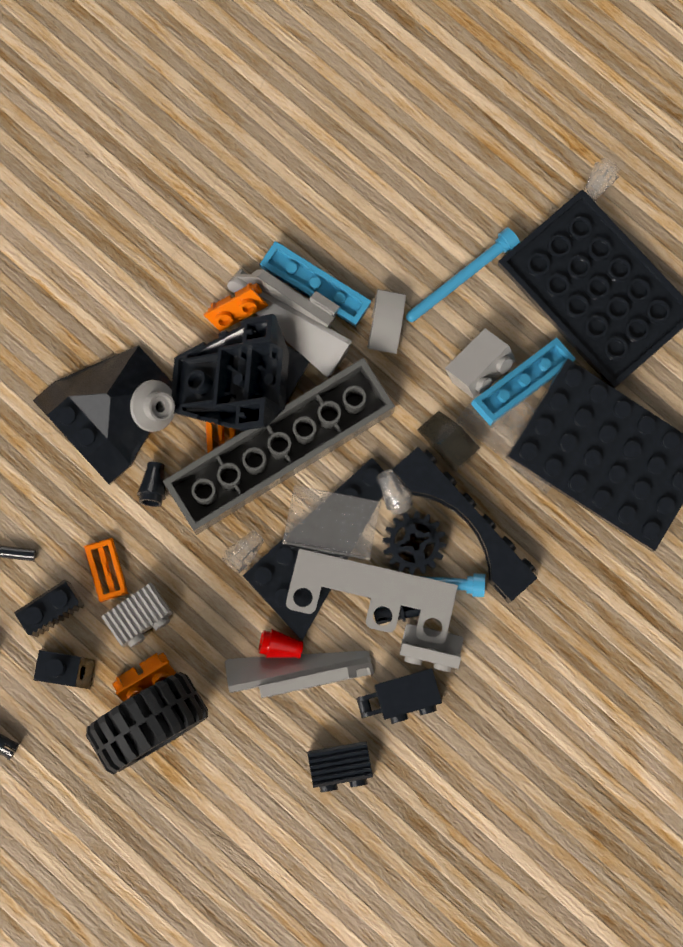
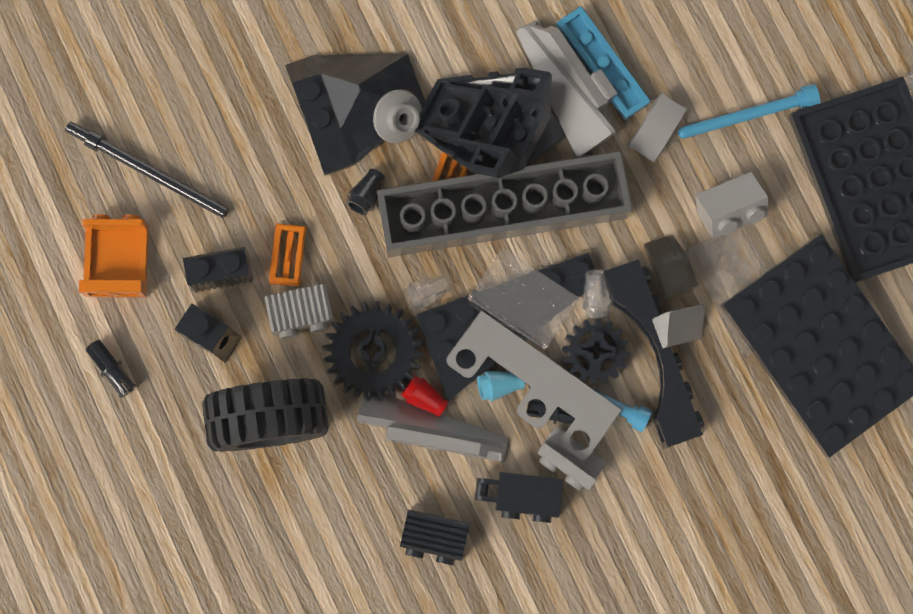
camera: 20 degrees right, 0 degrees up
(154, 670) = (293, 367): orange hinge -> none
(209, 596) = (375, 321): none -> black gear
(232, 310) = (515, 55): orange hinge -> none
(340, 607) = (498, 384): none -> medium azure cone
(478, 490) = (680, 325): none -> light grey slope
(521, 382) = (765, 238): dark azure plate -> none

